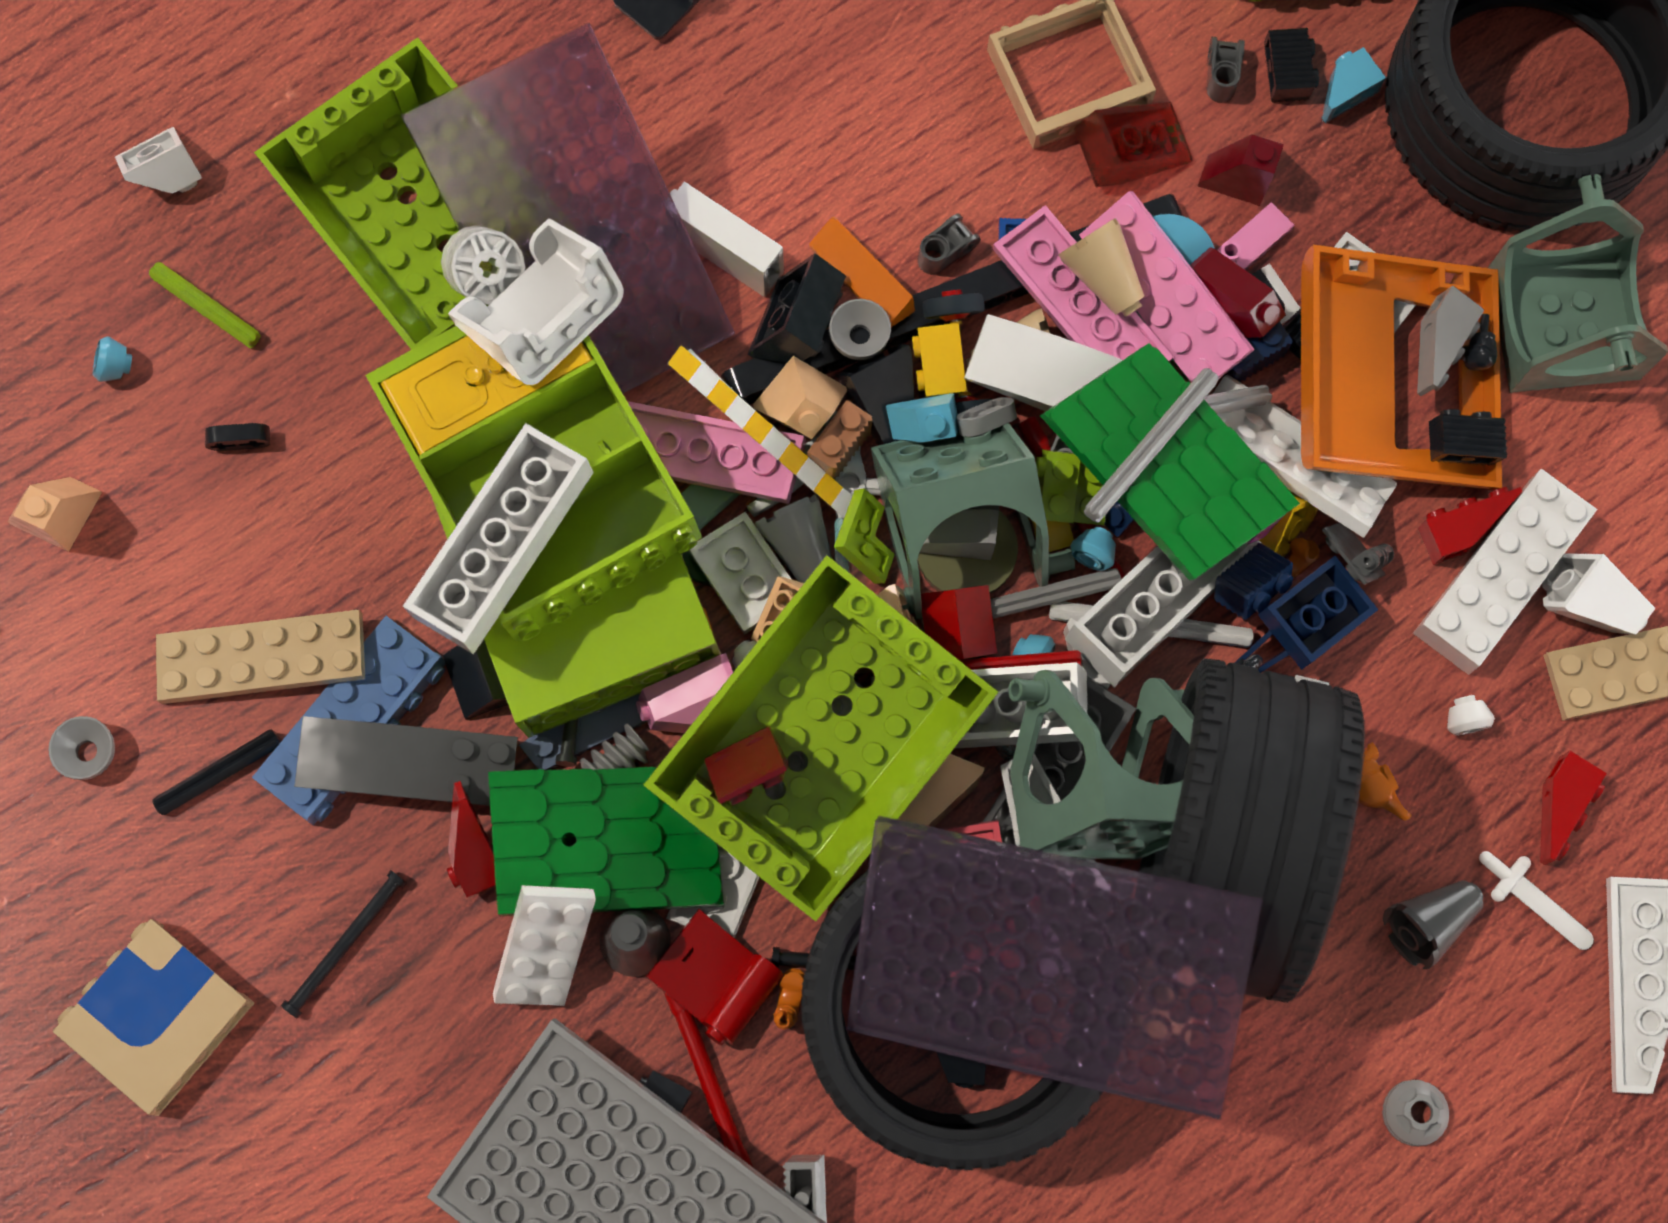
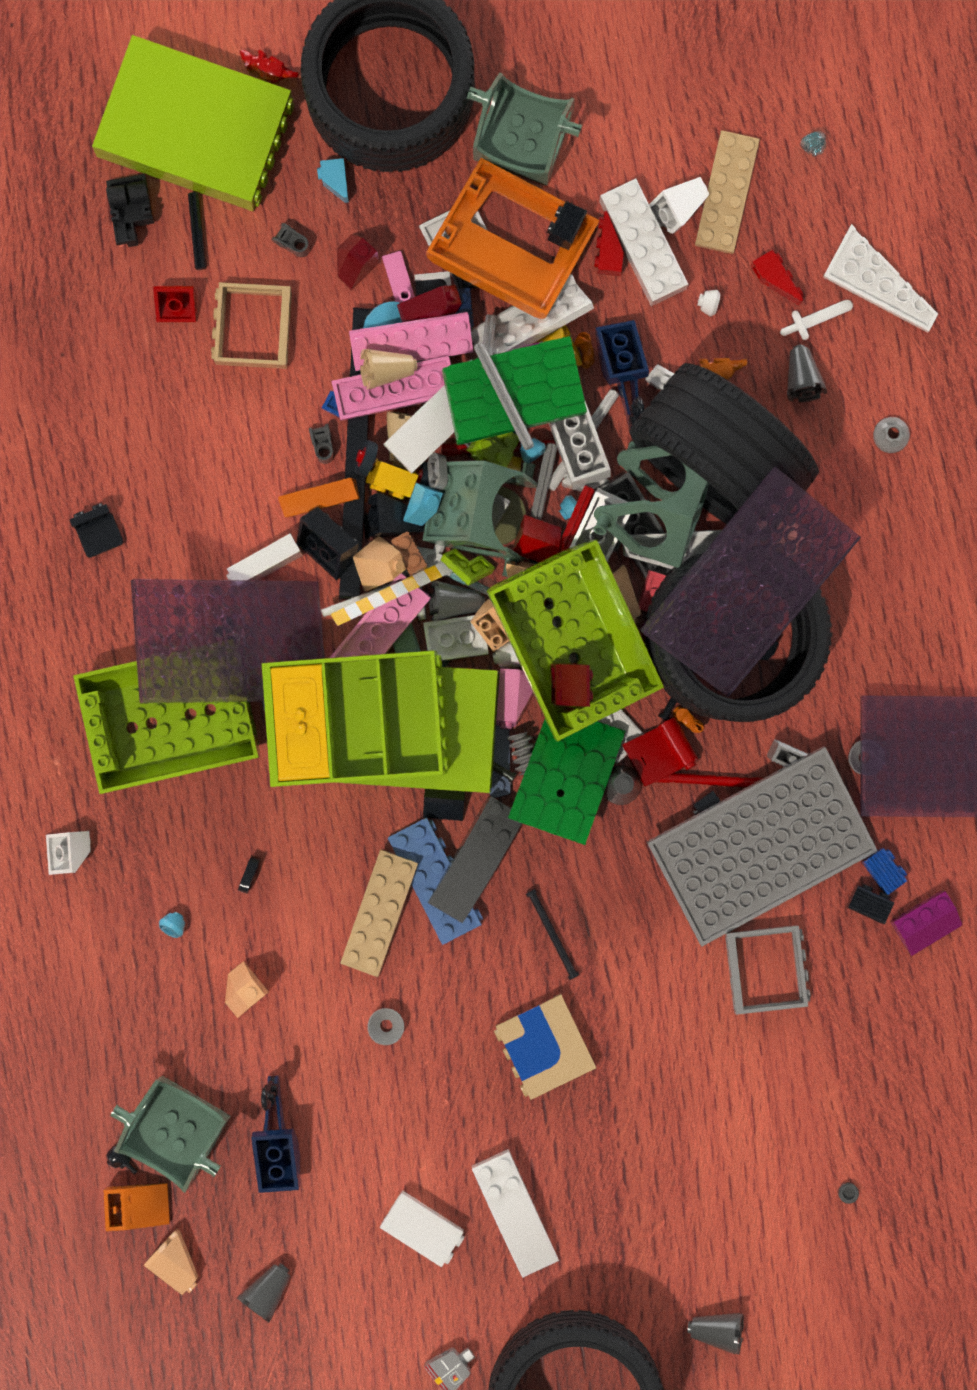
camera: 65 degrees left, 10 degrees up
(204, 305) = (162, 861): lime axle -> none
(216, 772) = (430, 962): black axle -> none
(469, 847) = (537, 847): red slope -> none
(477, 244) = (237, 697): white wheel -> none
(499, 538) = (400, 754): white brick -> none
(543, 945) = (608, 830): white plate -> none
(546, 307) = (281, 675): white windscreen -> none
(860, 314) = (354, 503): light grey piece -> none
(1132, 142) = (312, 313): clear red slope -> none
(1253, 581) = (591, 376): dark blue brick -> none
(1290, 64) = (308, 204): black brick -> none
(1362, 563) = (602, 314): dark grey hinge -> none
(1442, 334) = (503, 205): light grey slope -> none
(1482, 348) = (521, 190): black piece -> none

